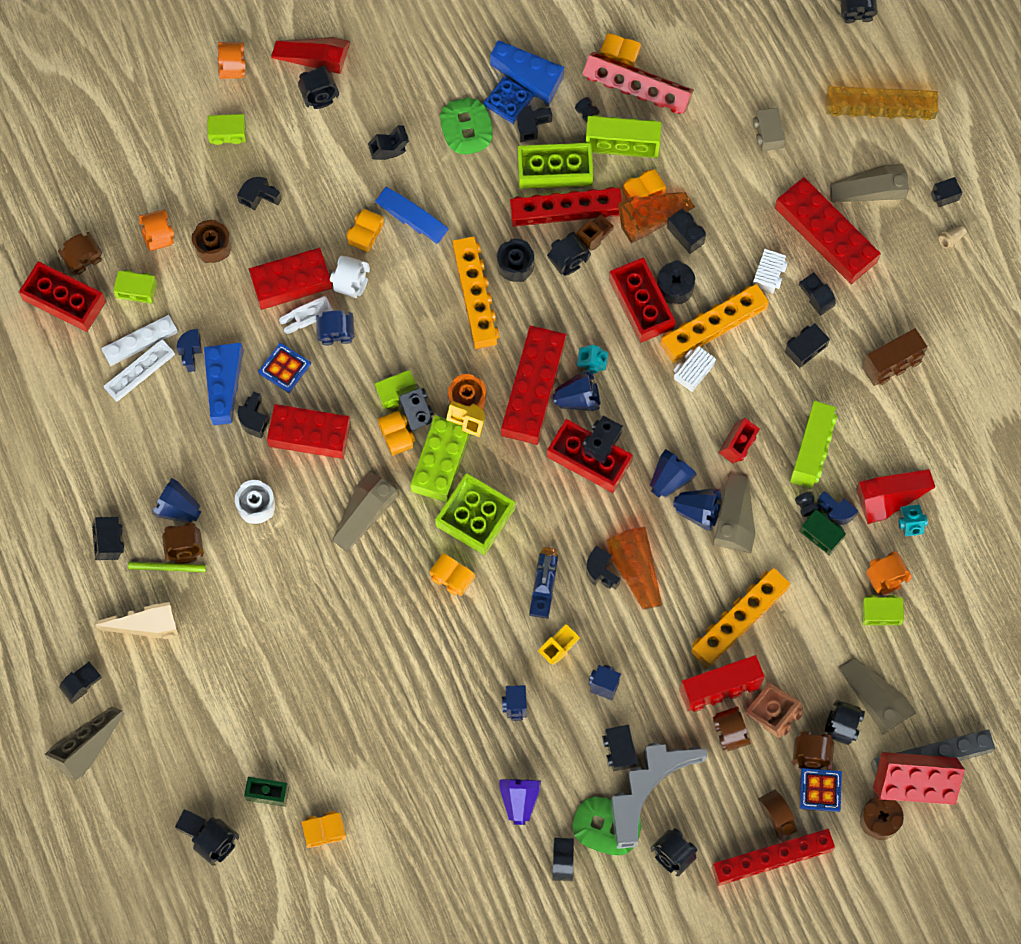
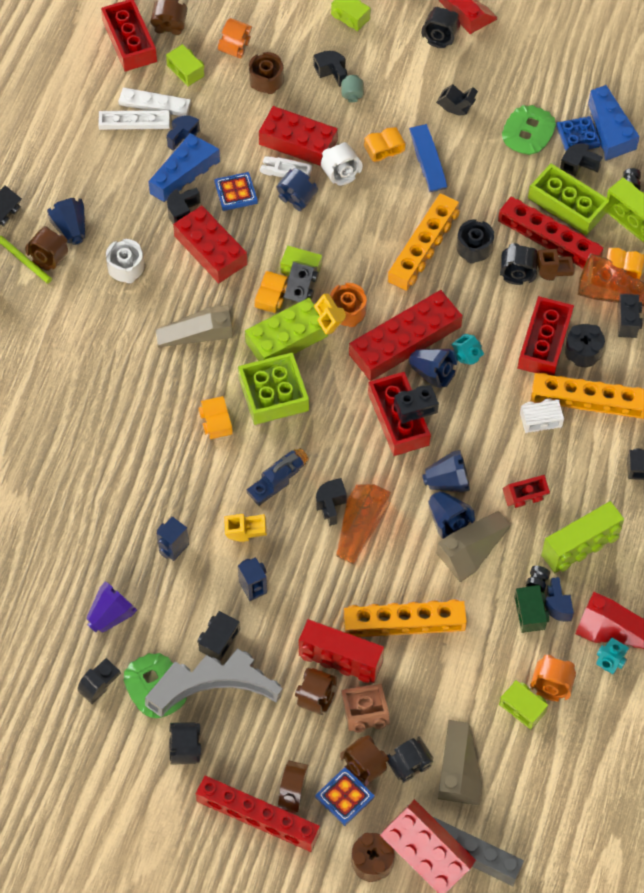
camera: 40 degrees right, 10 degrees down
(294, 199) = (352, 88): none -> sand green head

